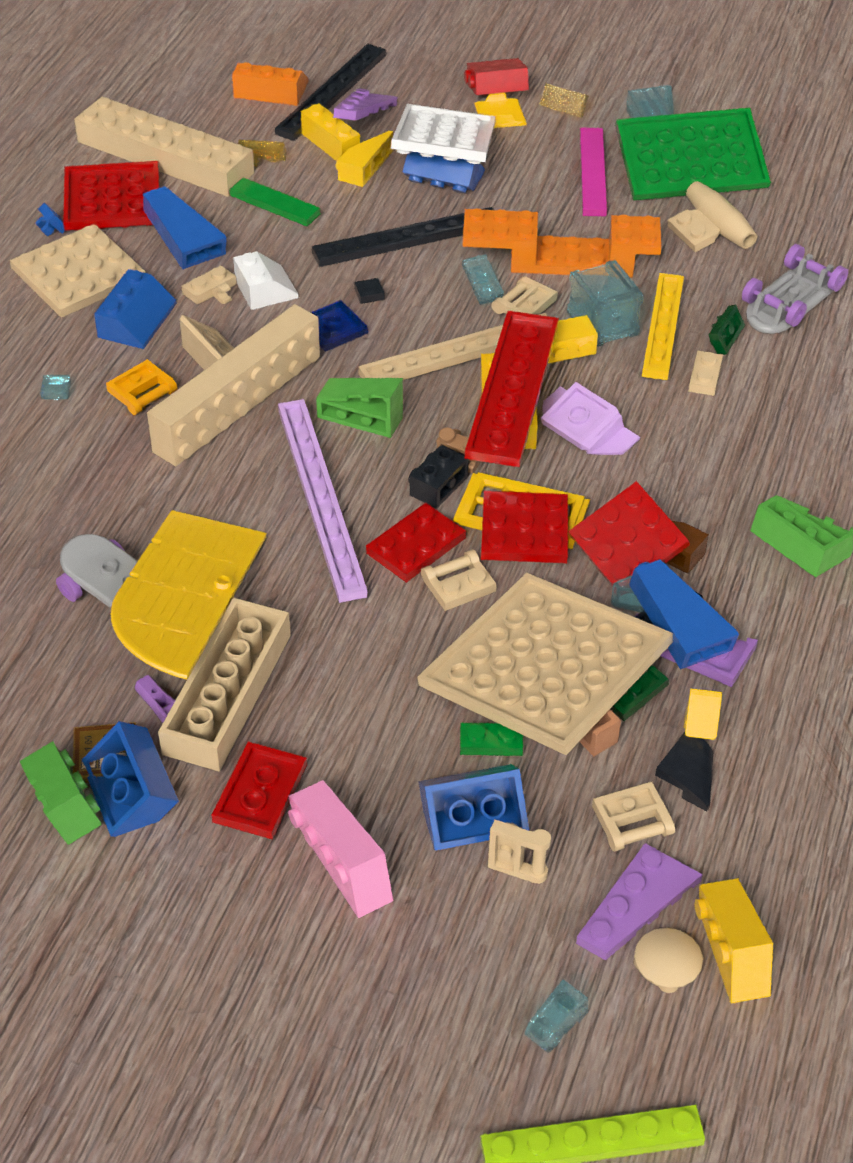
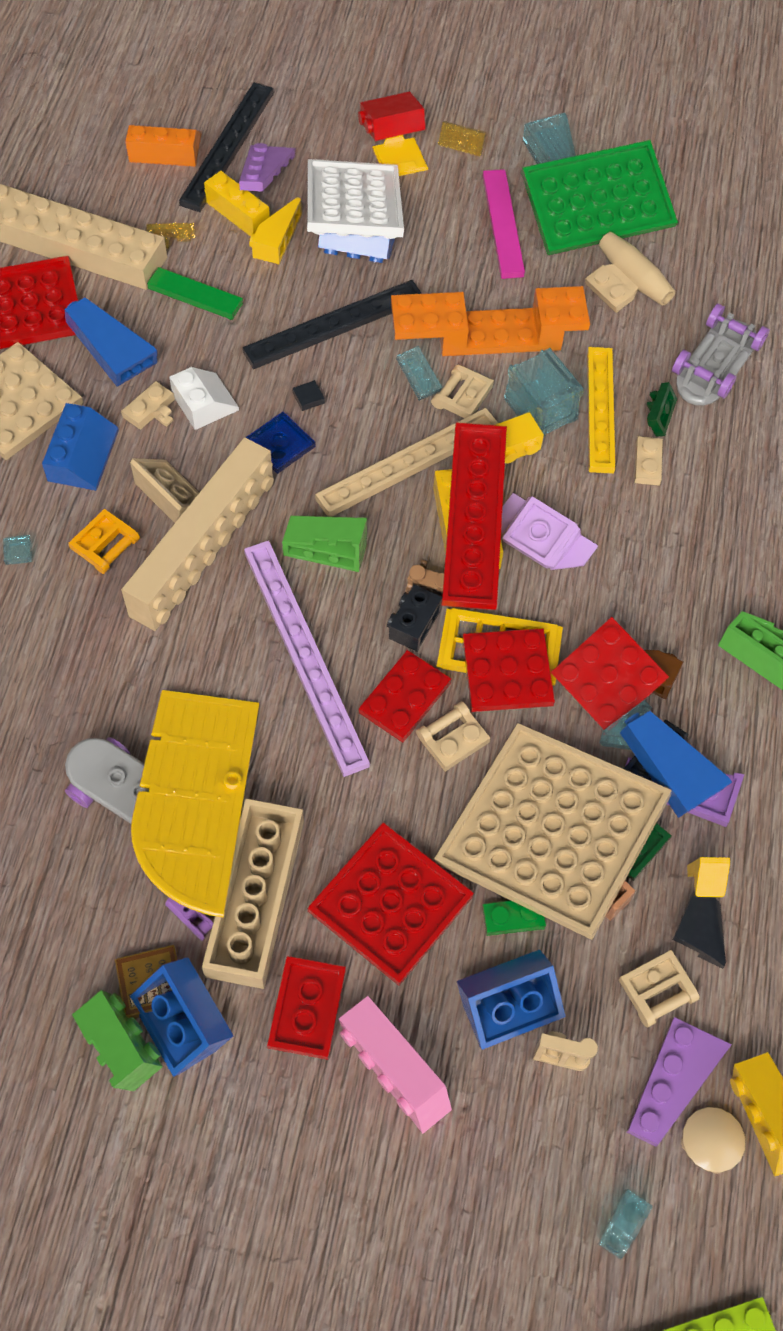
camera: 10 degrees left, 15 degrees up
(365, 711) = (390, 903): none -> red plate

